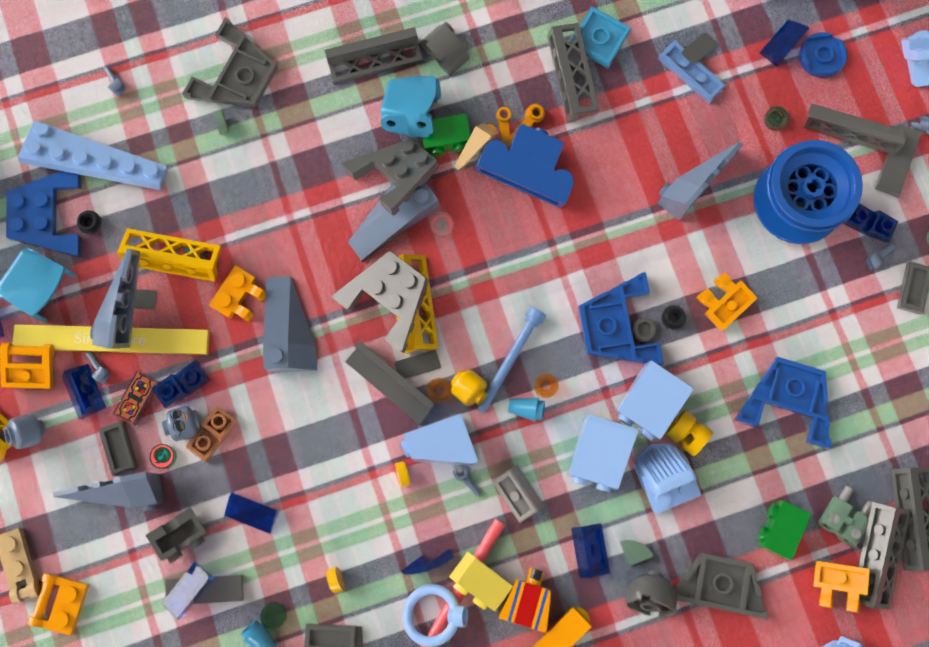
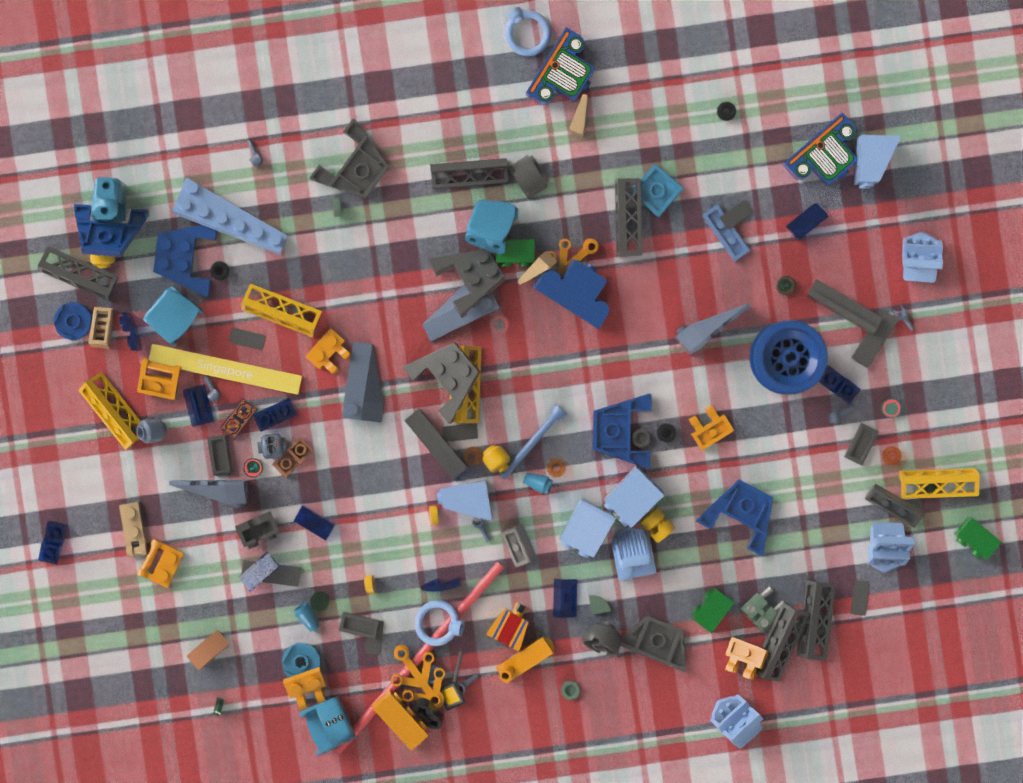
camera: 10 degrees right, 10 degrees up
(115, 318) = (231, 360): sand blue wedge -> none
(481, 582) = (478, 606): light yellow brick -> none
(822, 55) = (836, 238): blue tile -> none

